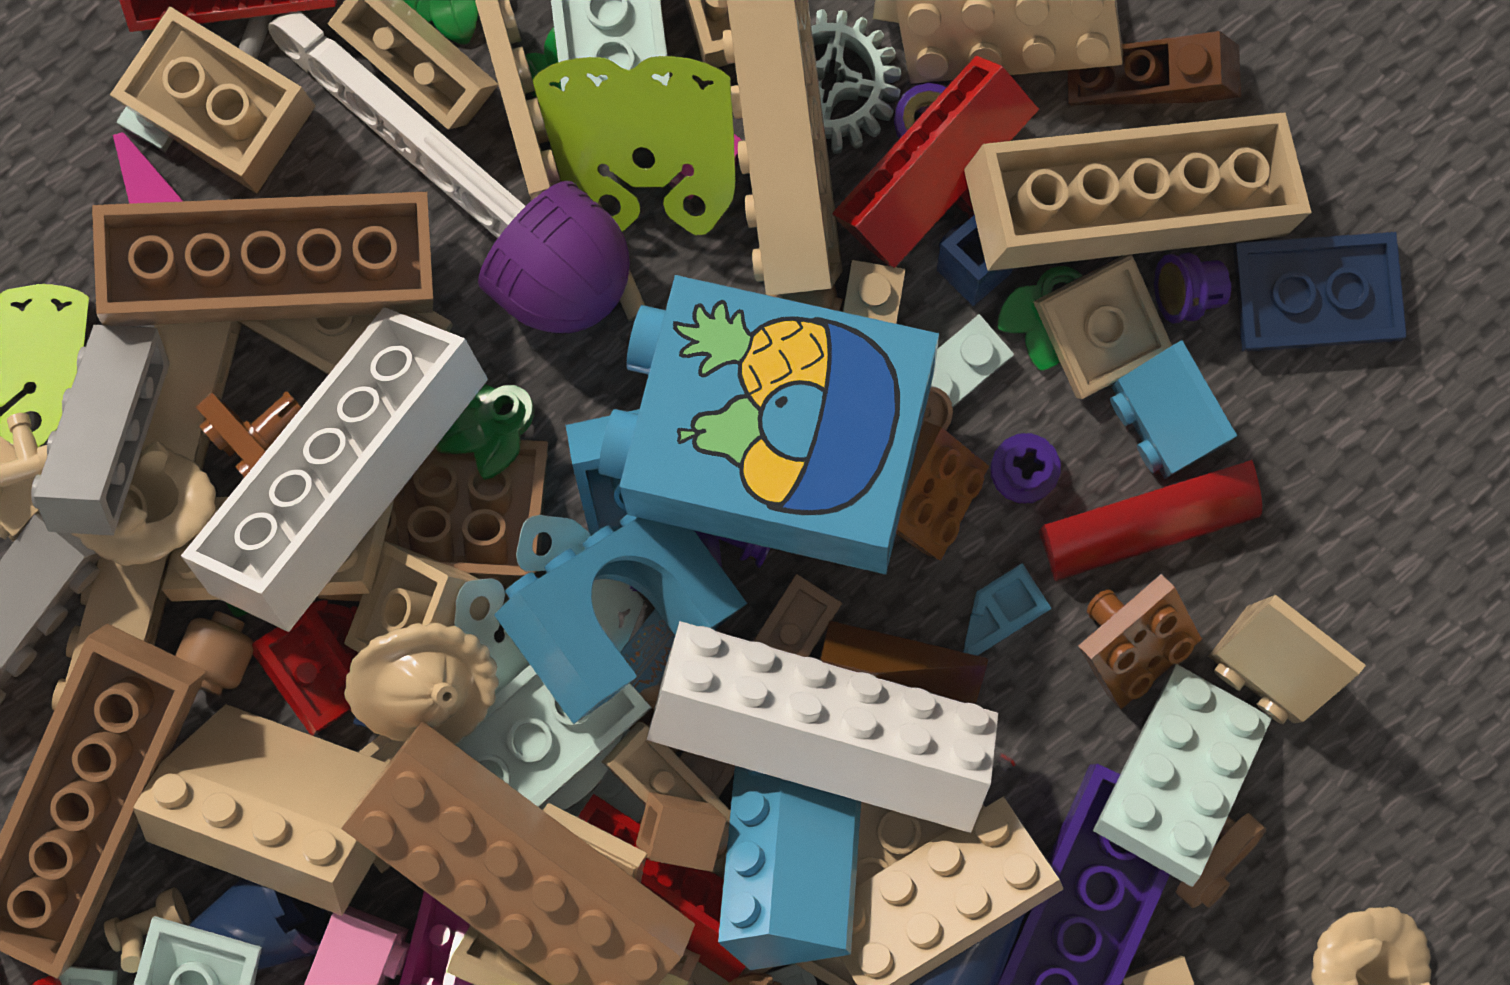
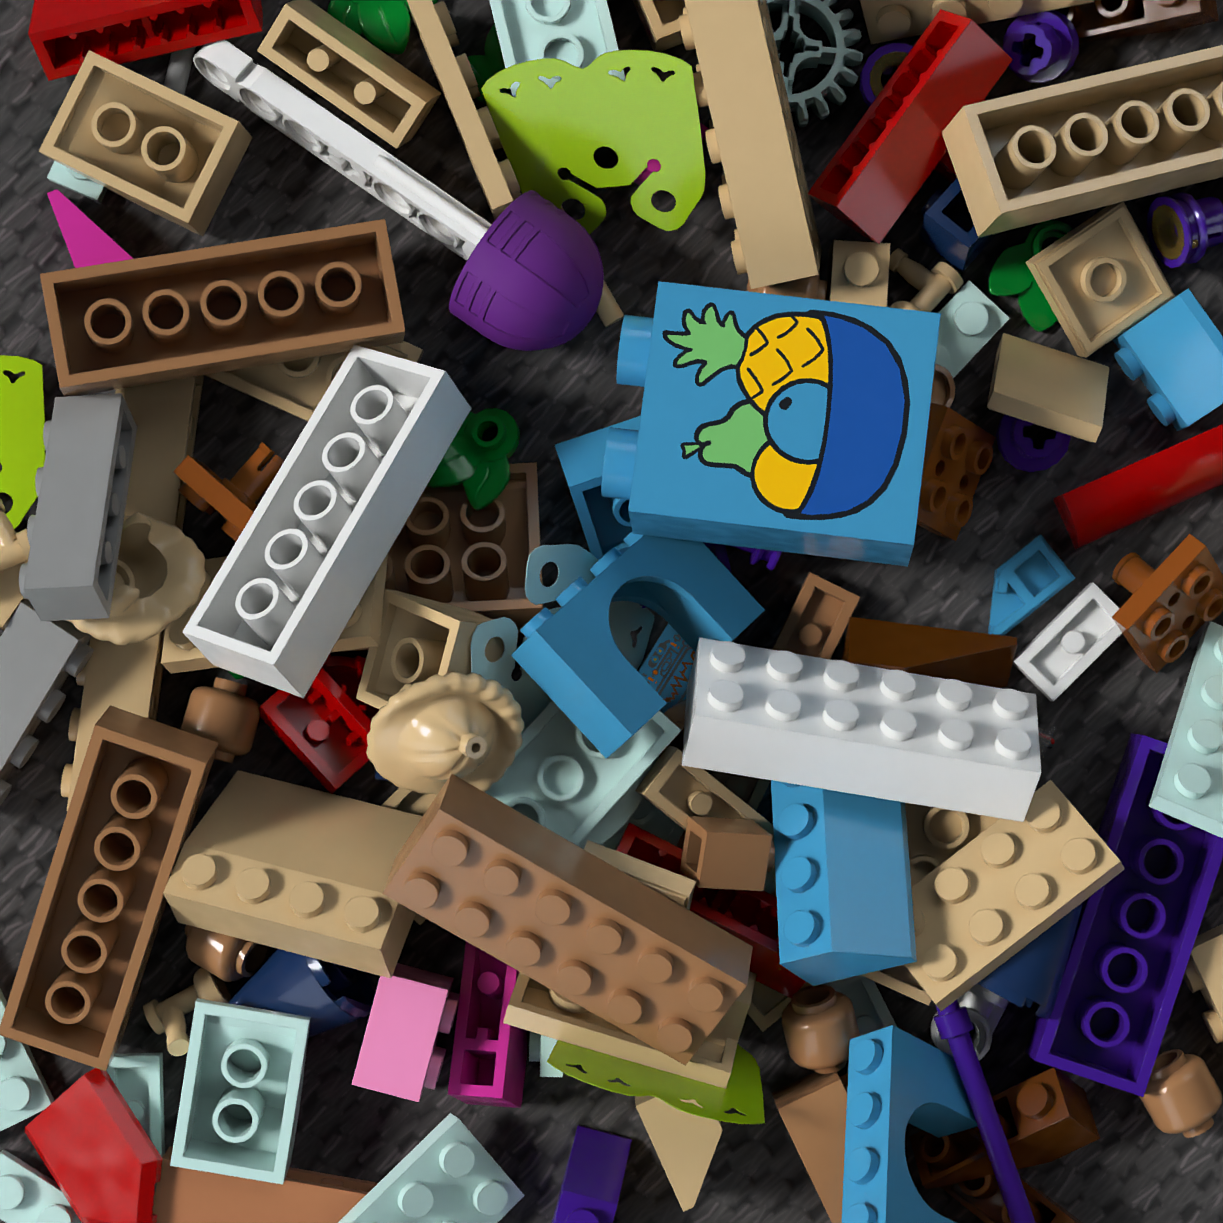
camera: 10 degrees left, 5 degrees up
(188, 879) = (223, 954): none -> medium nougat head
(942, 314) = (931, 284): none -> tan piece
(1038, 670) = (1070, 642): none -> white plate
(1043, 423) = (1048, 388): none -> tan tile
(1085, 98) = (1056, 37): none -> dark purple piece

